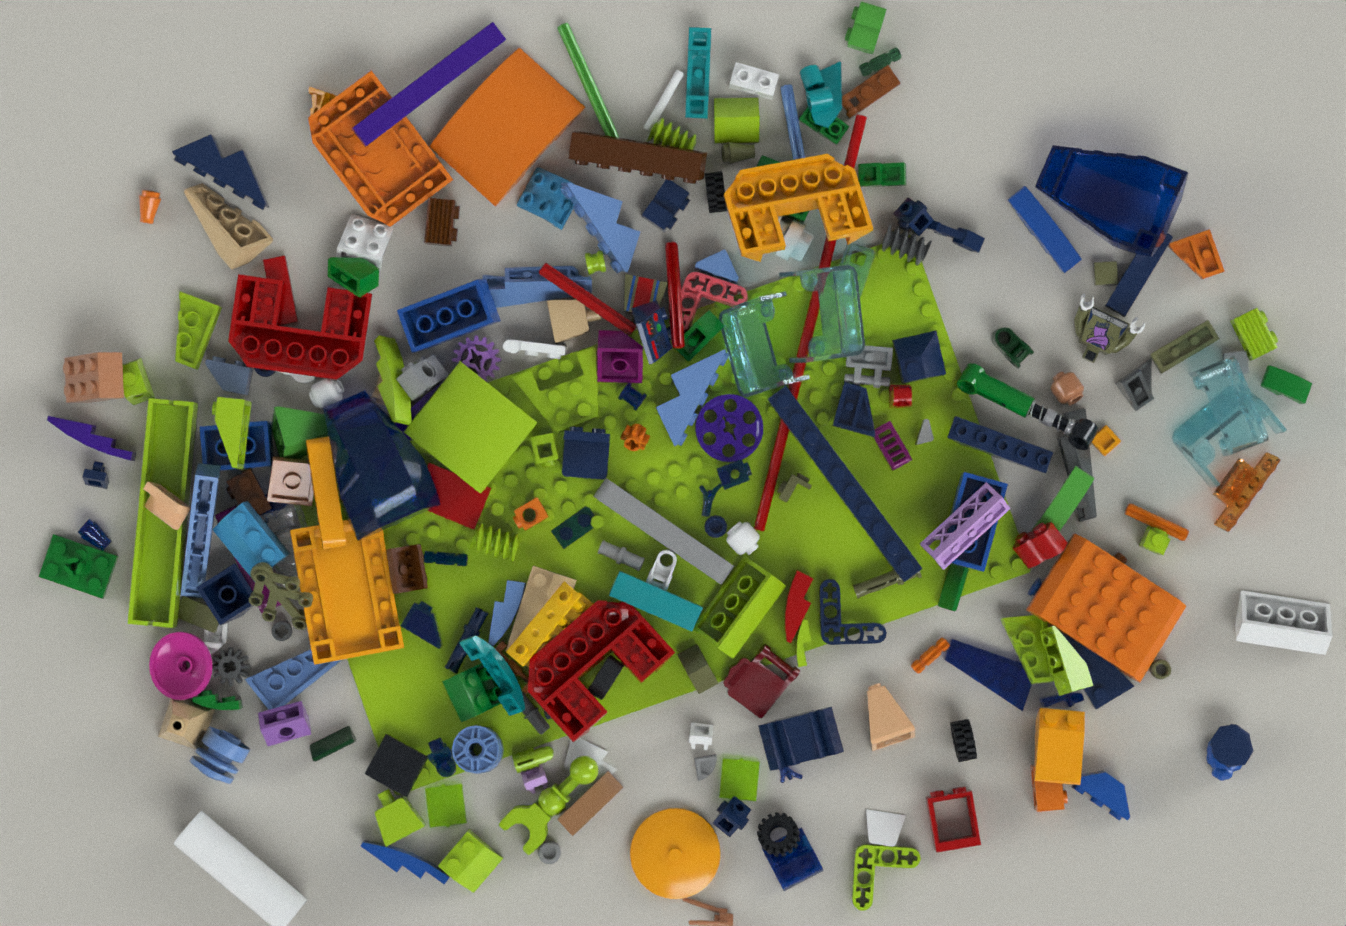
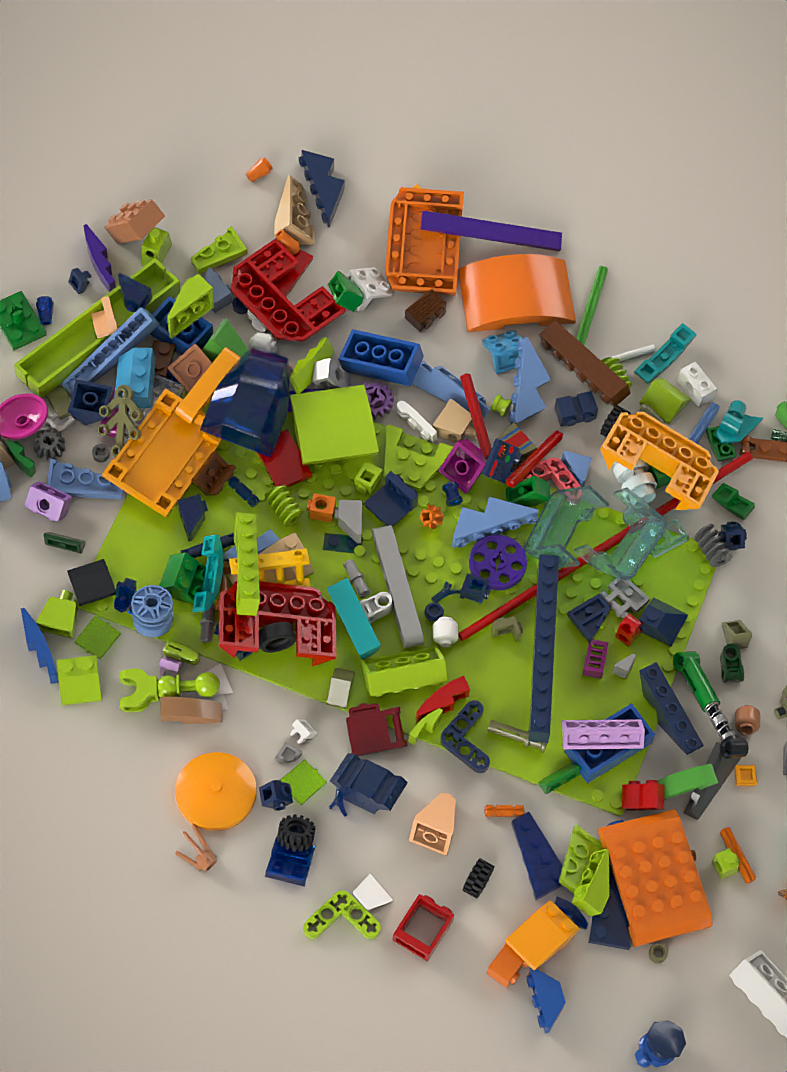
camera: 35 degrees right, 25 degrees down
(169, 459) = (134, 293): none -> clear blue slope
(252, 266) = (288, 242): none -> orange cone
(540, 658) = (247, 564): none -> lime arch
(549, 852) = (134, 721): light grey tile -> none
(564, 502) = (350, 518): none -> light grey slope
(961, 237) = (754, 574): dark blue piece -> none
(990, 310) = (737, 633): none -> olive slope

